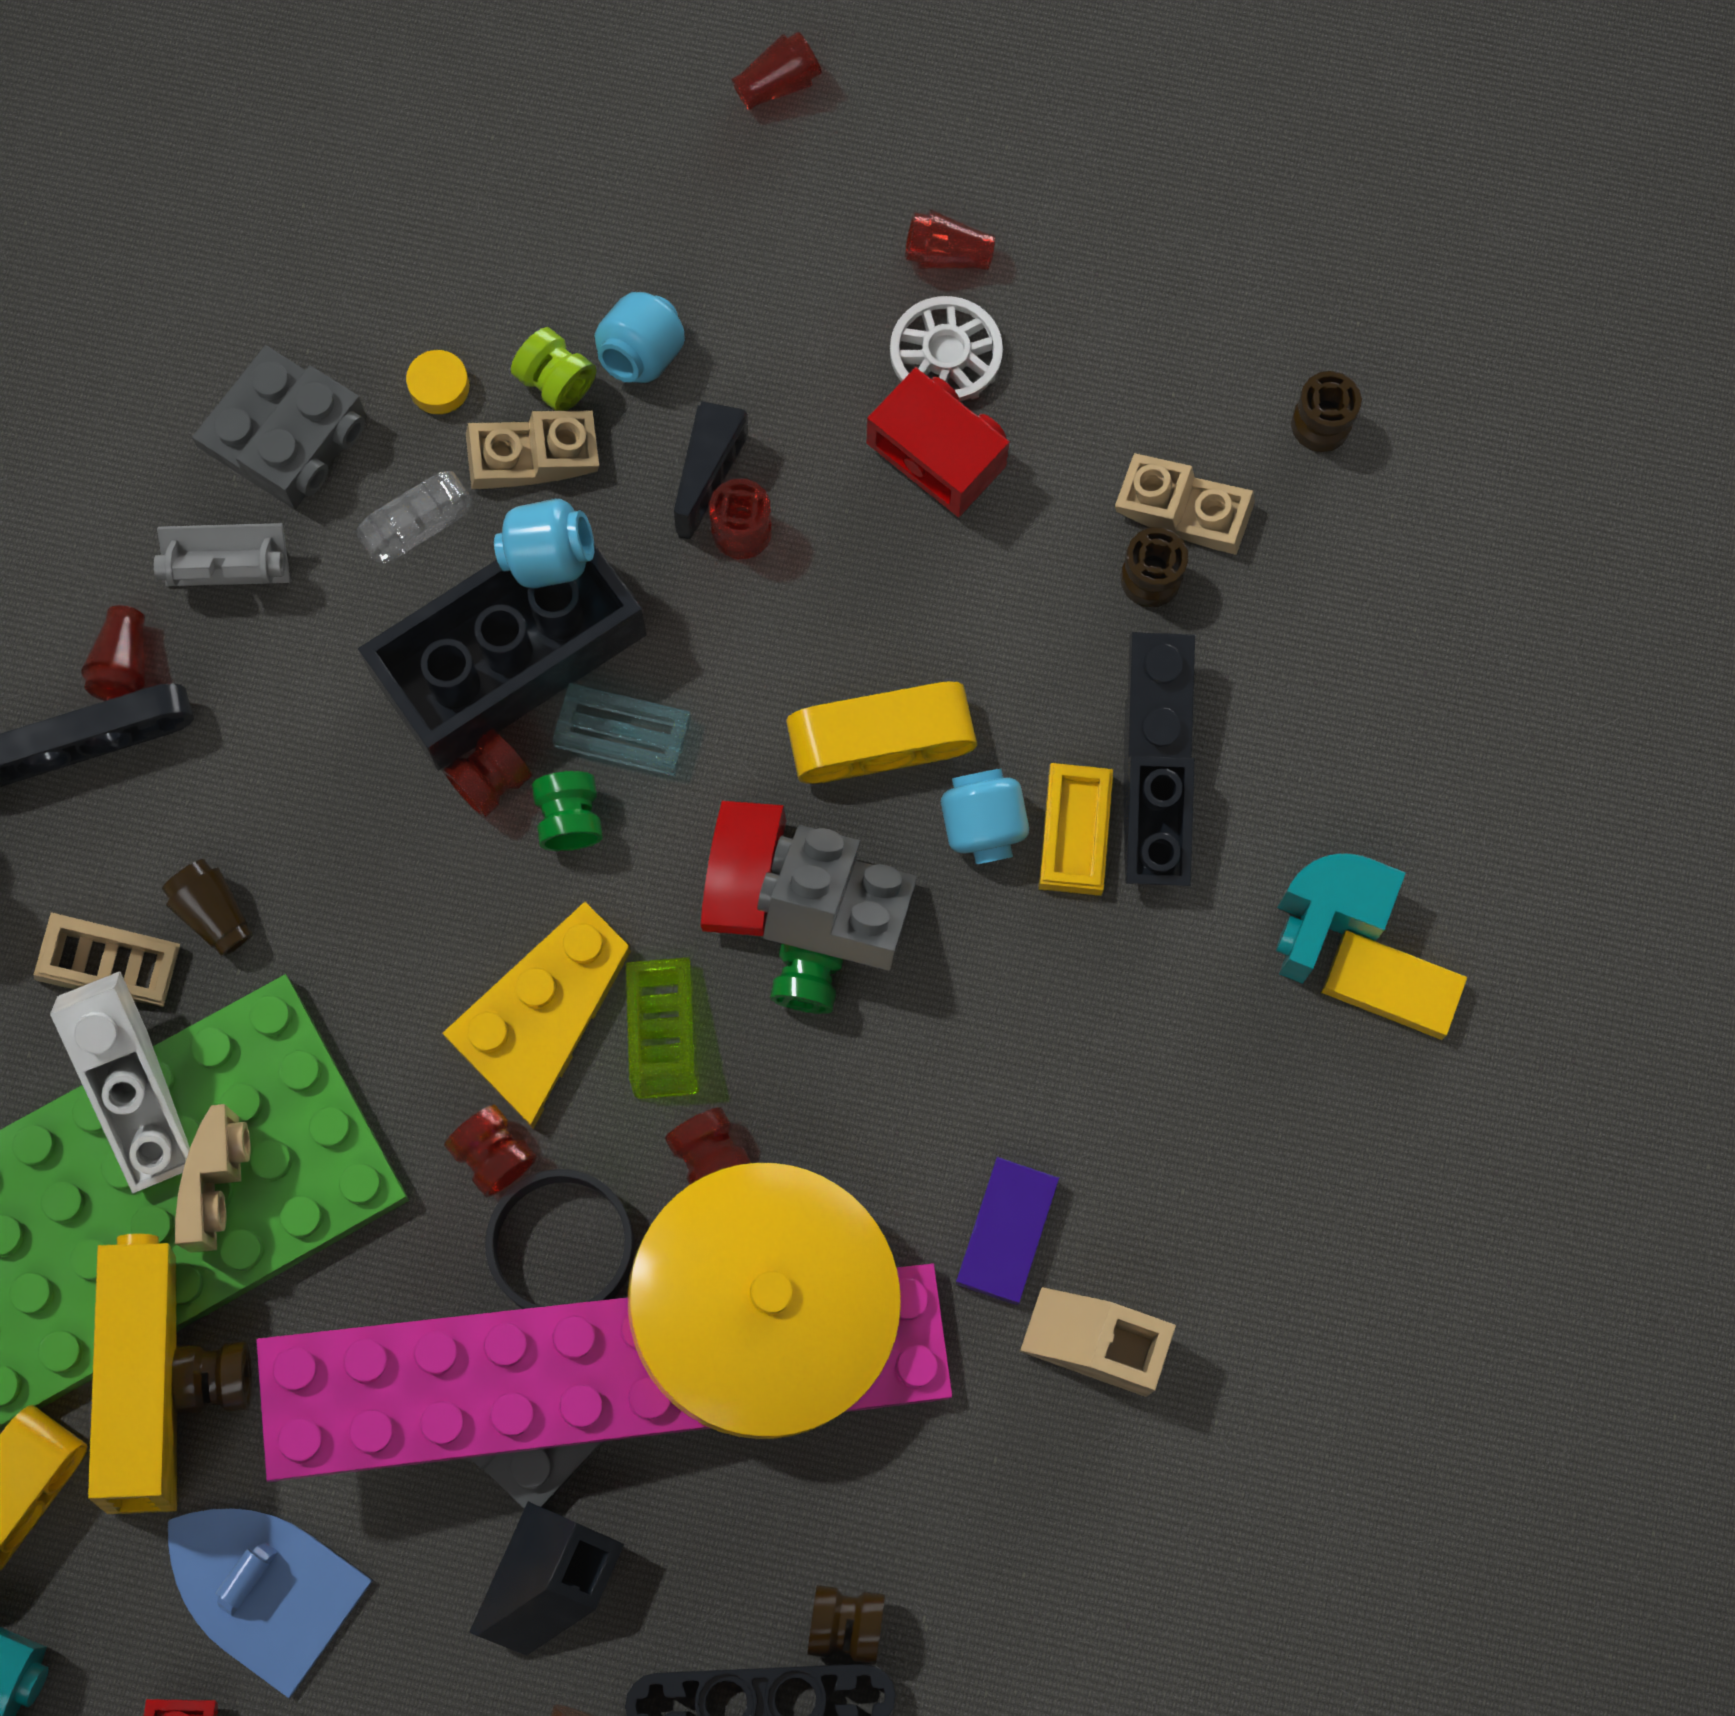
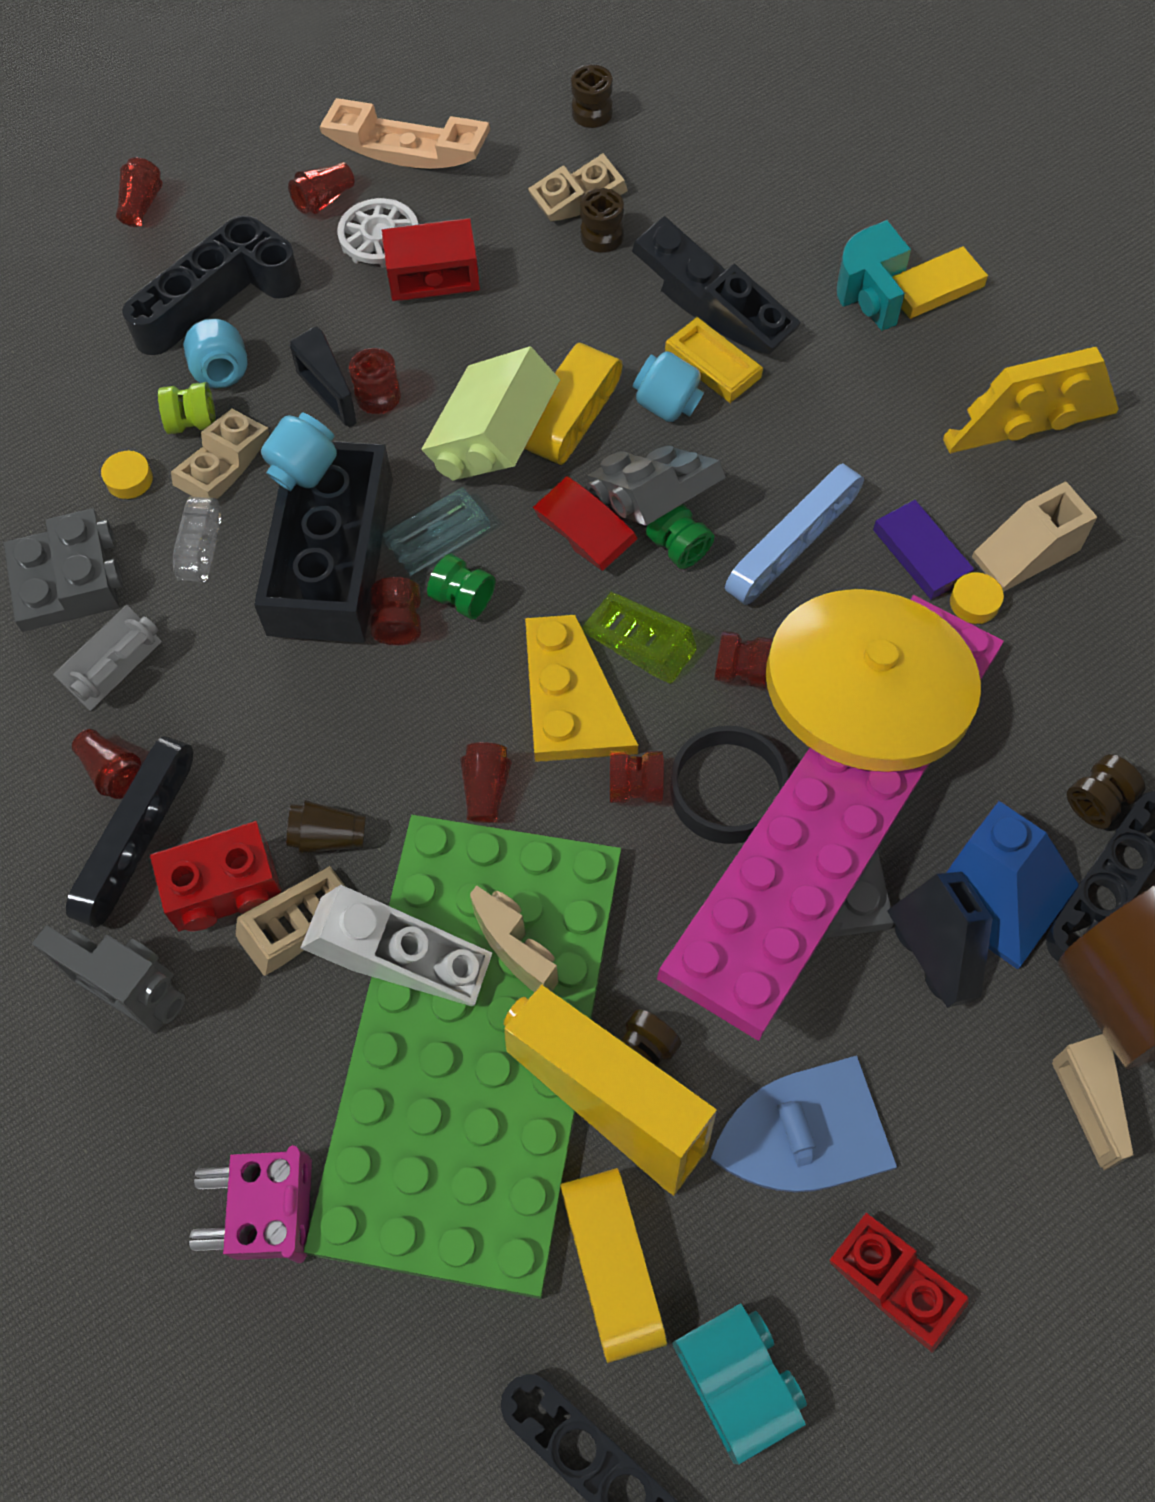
camera: 45 degrees left, 10 degrees down
(82, 856) = (215, 877): none -> red brick
(376, 1009) = (484, 780): none -> clear red cone
(662, 1602) = (1016, 879): none -> blue slope
(713, 258) = (208, 278): none -> black beam
(776, 675) = (491, 414): none -> yellowish green brick
(908, 1087) = (793, 534): none -> light blue beam
(990, 1330) = (976, 598): none -> yellow tile
(1088, 267) = (403, 143): none -> light nougat slope
(1269, 1204) = (1037, 399): none -> yellow wing

